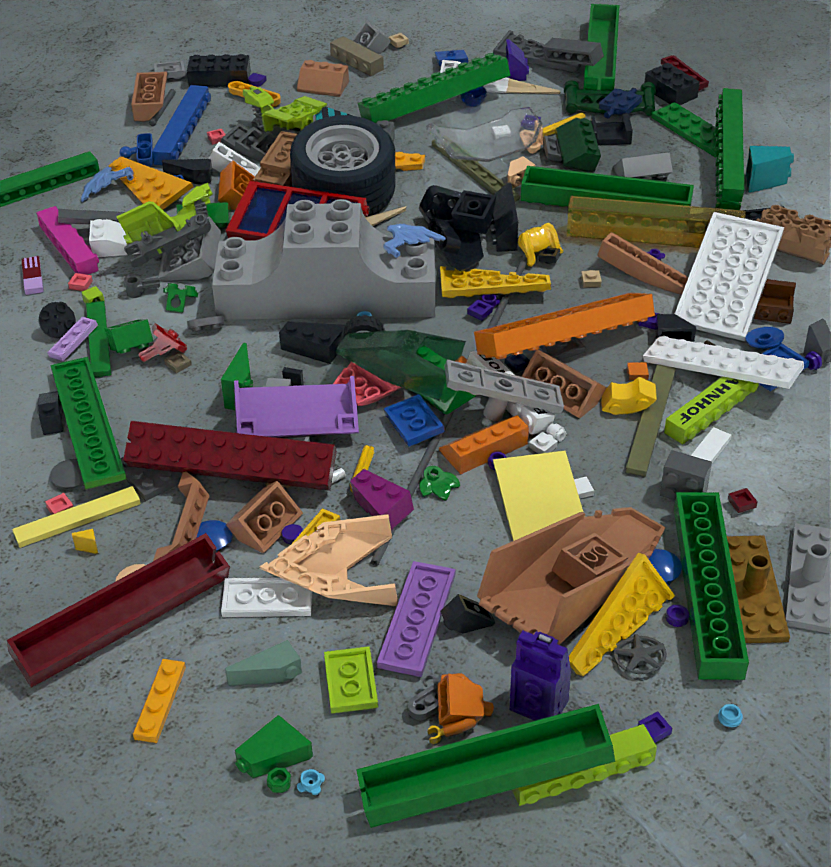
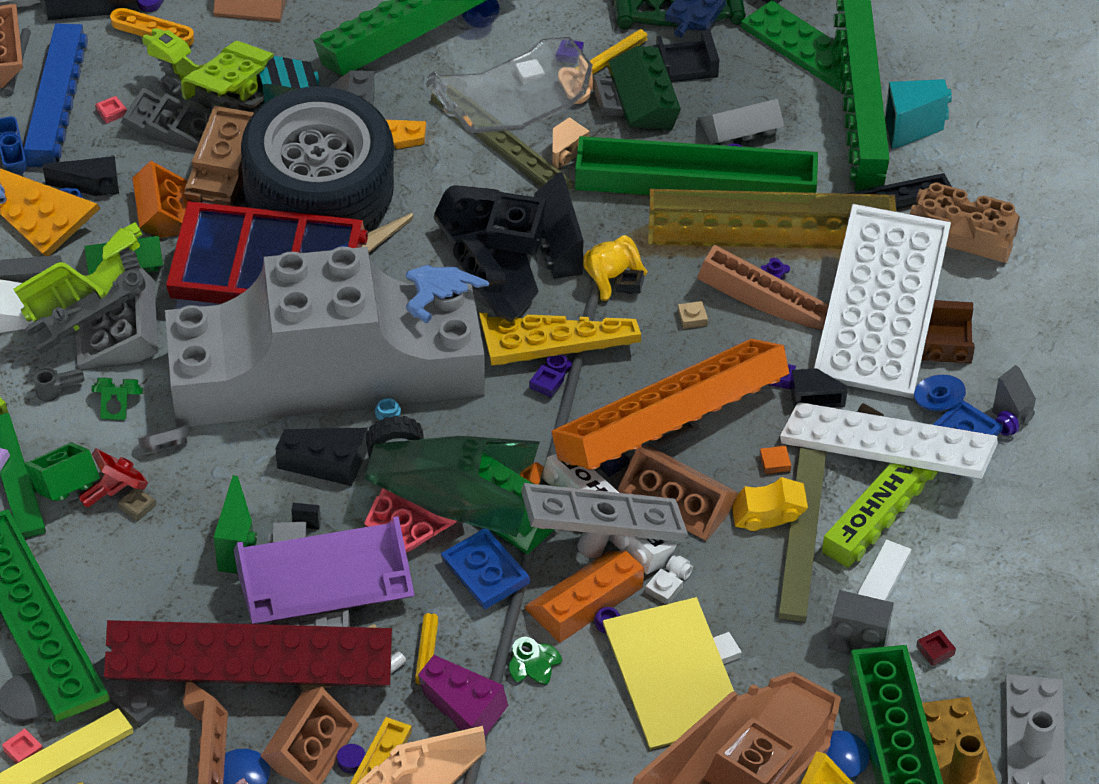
camera: 10 degrees left, 5 degrees up
(222, 156) = (135, 152): white slope -> none

